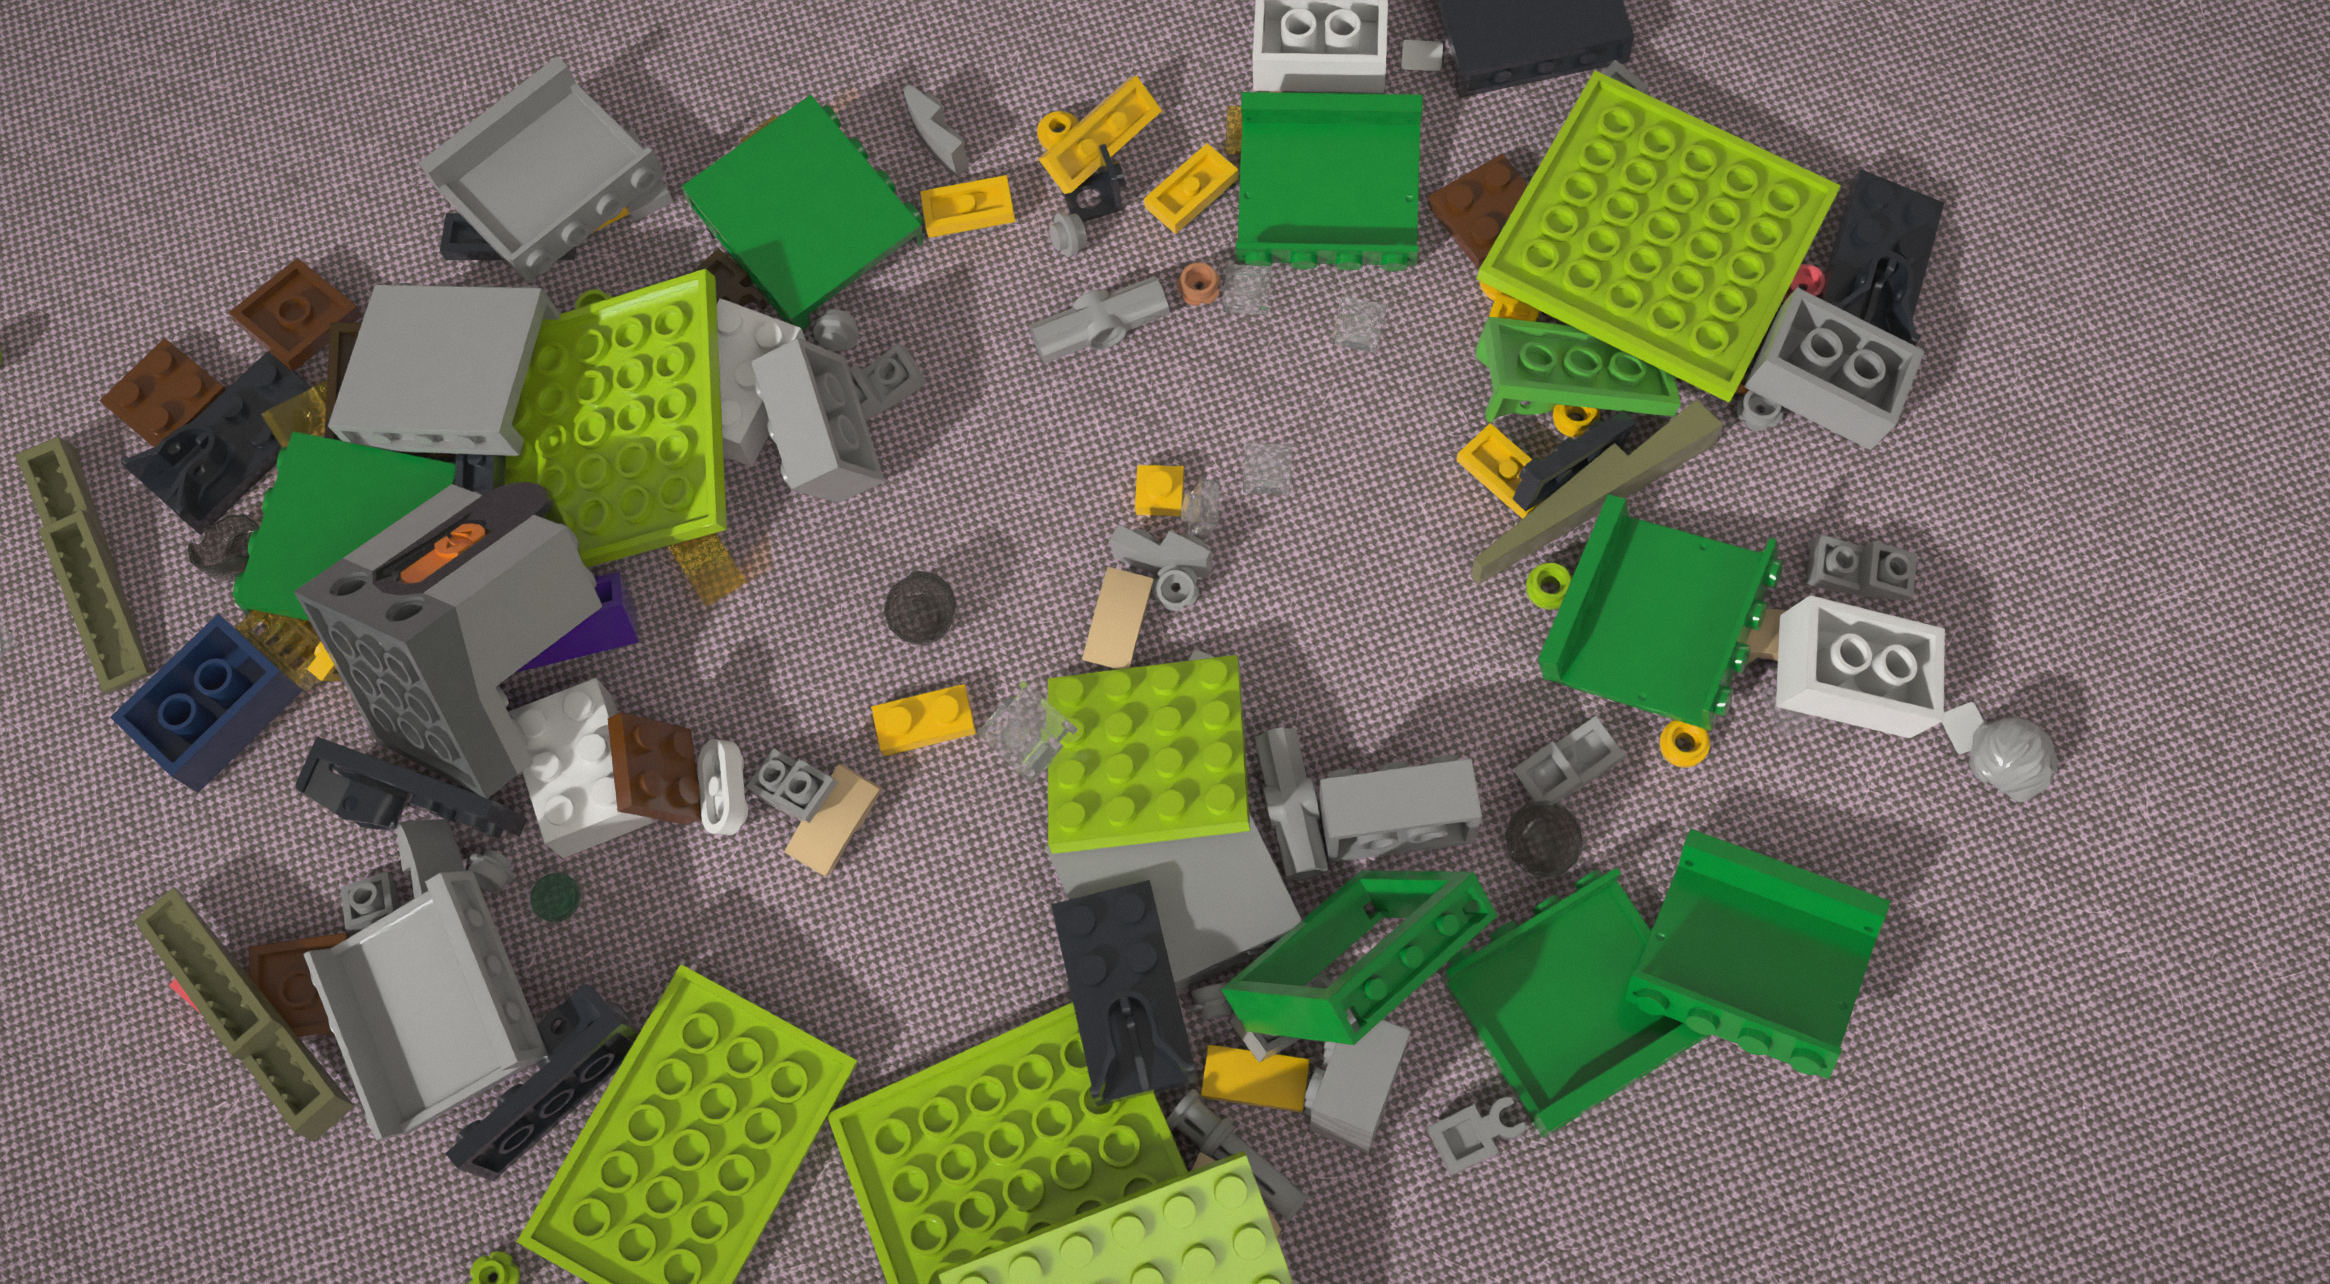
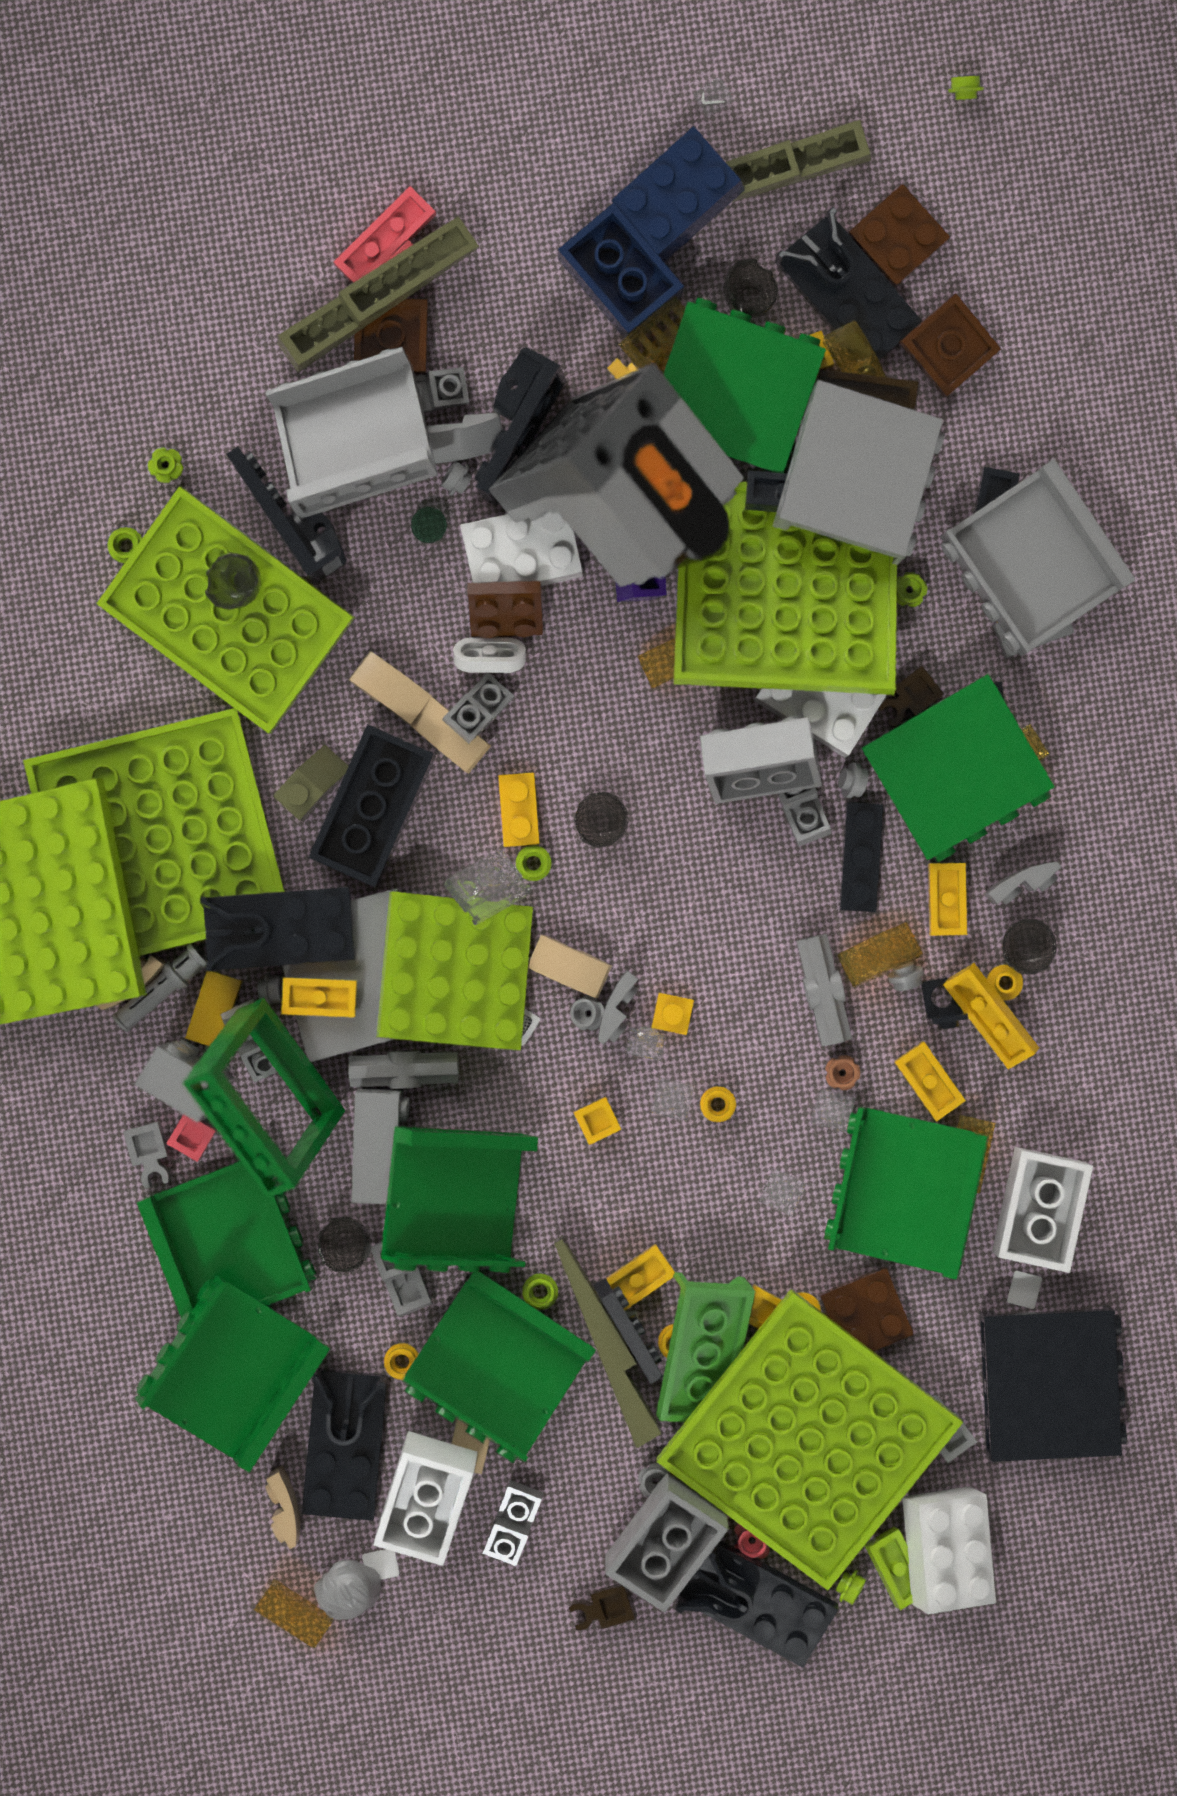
camera: 90 degrees right, 20 degrees up
(95, 639) = (679, 193): none -> dark blue brick
(165, 1020) = (386, 235): none -> coral plate
(640, 1132) = (233, 581): none -> clear smoke hair
(775, 909) = (390, 687): none -> tan slope
(923, 993) = (311, 783): none -> olive slope
(930, 311) = (861, 857): none -> black plate
(939, 899) = (372, 806): none -> black brick
(986, 676) = (525, 854): none -> lime plate
(1010, 107) = (1029, 946): none -> clear smoke hair
(1046, 265) = (879, 954): none -> clear yellow slope
(1208, 917) = (319, 997): none -> yellow plate
(1269, 406) = (723, 1114): none -> yellow plate
(1312, 552) = (597, 1120): none -> yellow plate
(1439, 1076) = (191, 1137): none -> coral plate
(1451, 699) = (453, 1198): none -> green panel
(1753, 64) = (949, 1550): none -> white brick
(1792, 120) = (891, 1561): none -> lime plate
(1817, 798) = (344, 1444): none -> black plate
(1830, 165) = (850, 1587): none -> lime plate
(1929, 856) = (286, 1518): none -> tan slope
(1935, 431) = (609, 1605): none -> dark brown plate
(2066, 826) = (293, 1613): none -> clear yellow slope

